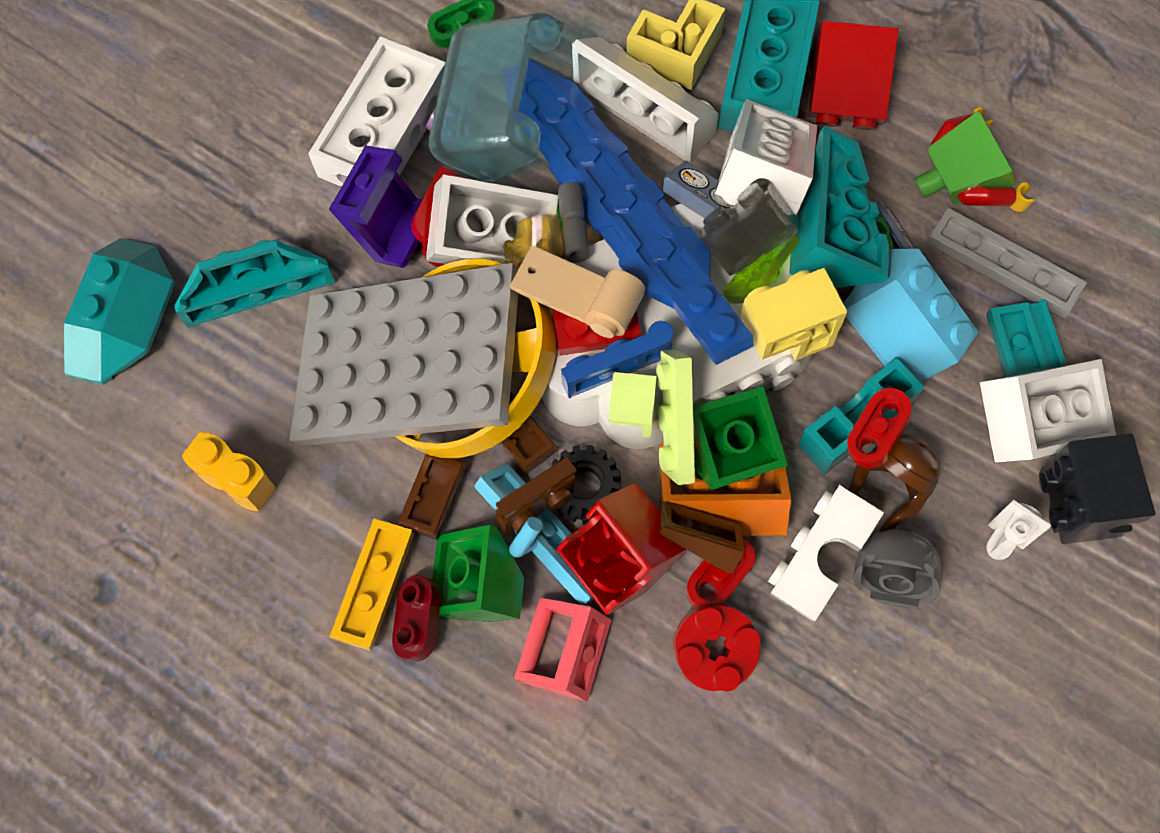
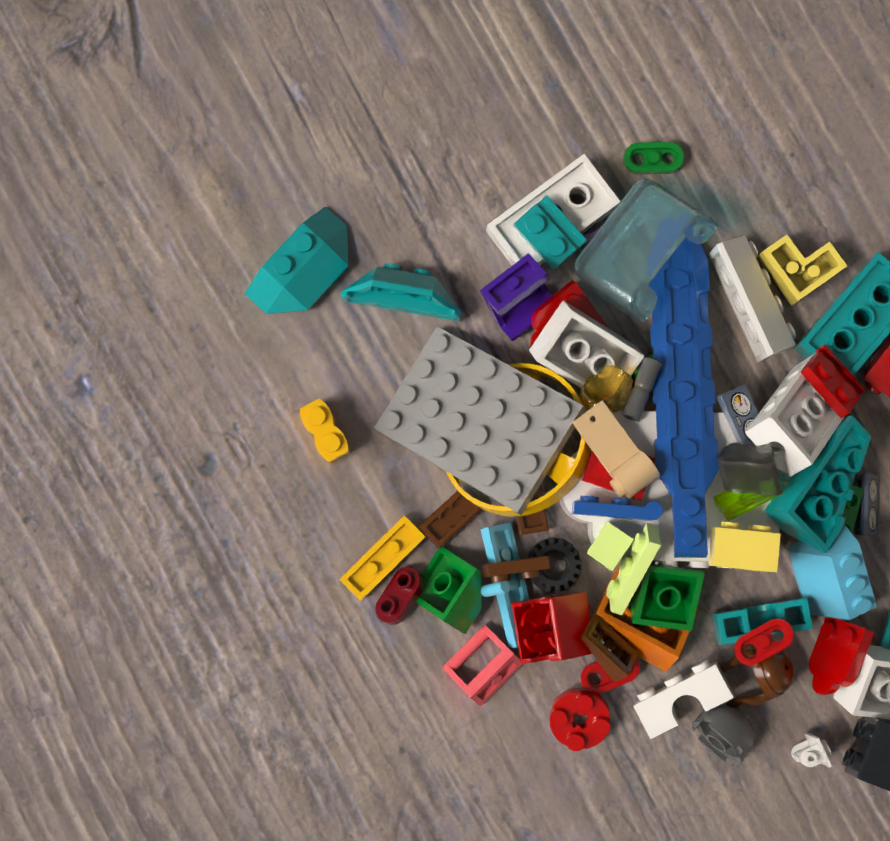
camera: 25 degrees right, 15 degrees up
(382, 123) = (549, 232): none -> teal plate
(780, 112) = (832, 381): none -> red plate
(971, 405) = (838, 655): none -> red plate

